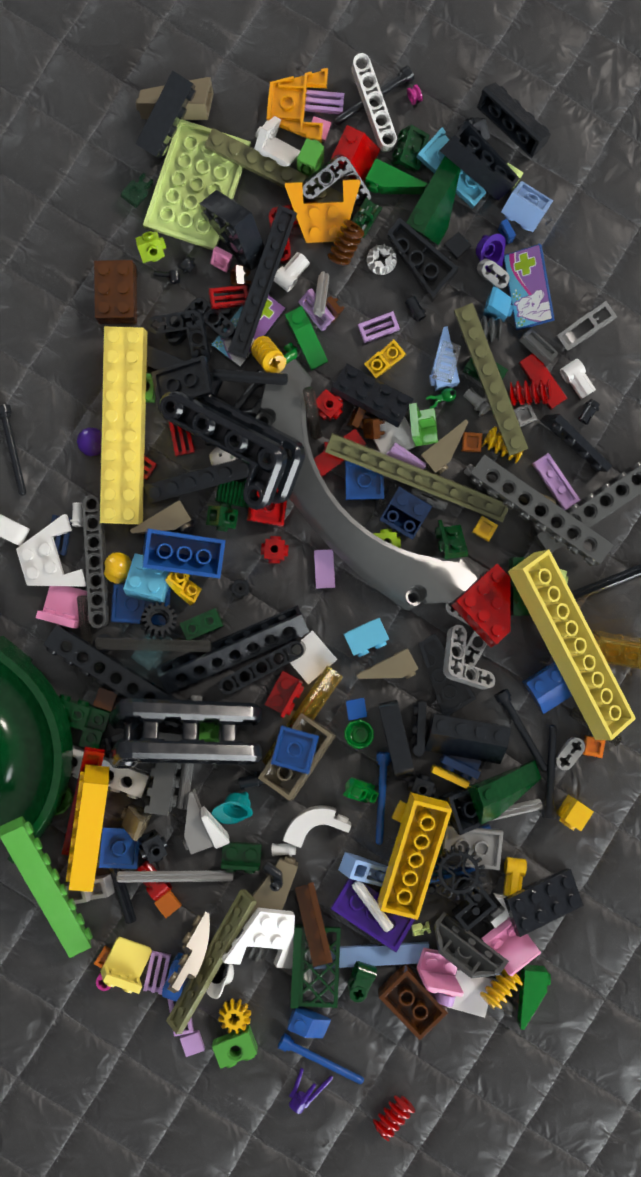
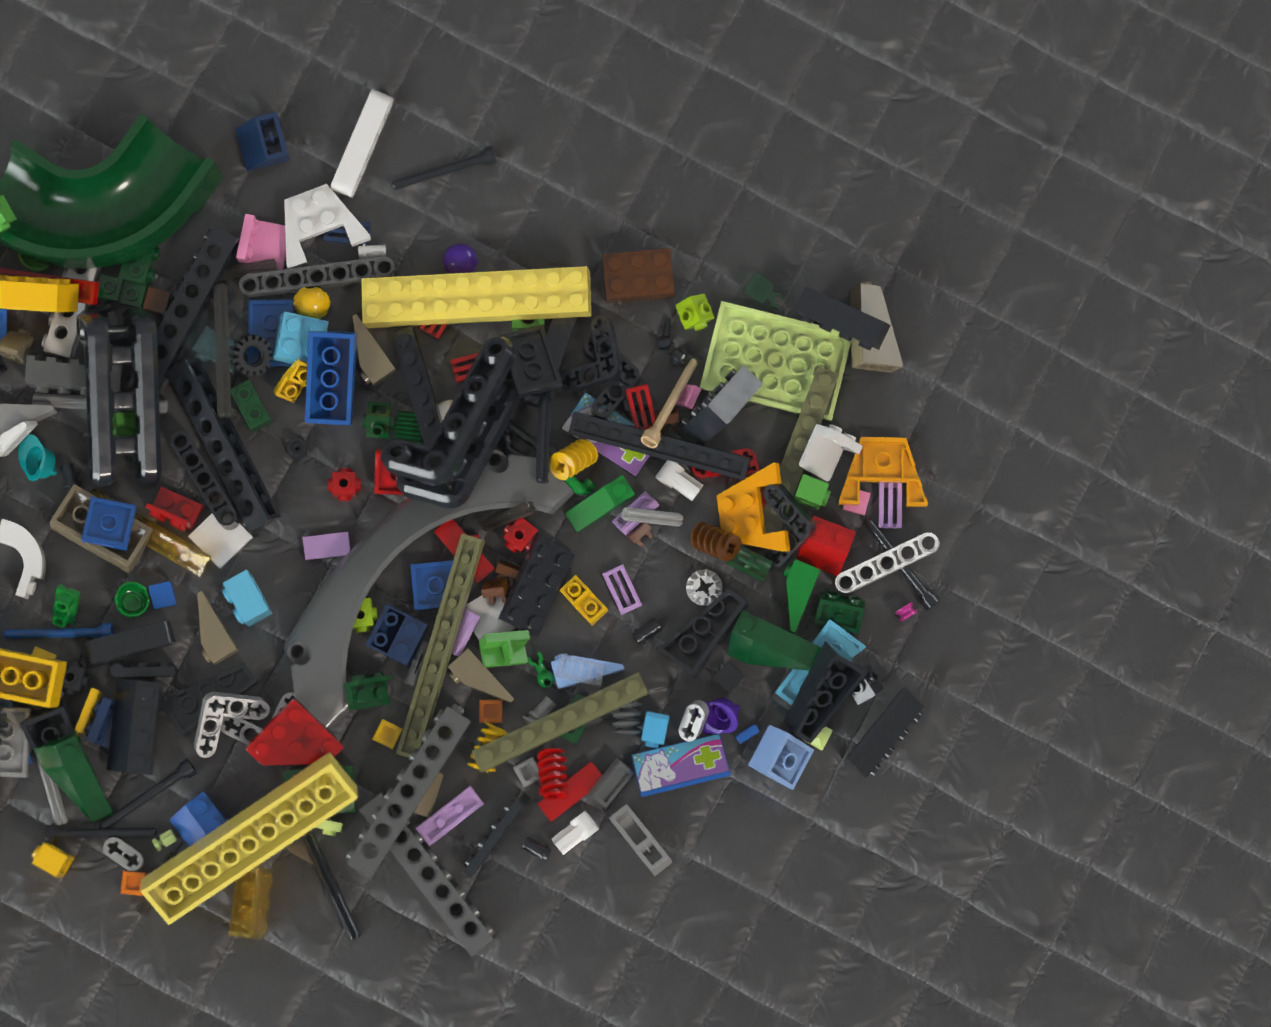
camera: 85 degrees right, 5 degrees down
(254, 284) = (651, 436): none -> tan piece
(559, 717) = (166, 839): none -> yellowish green piece

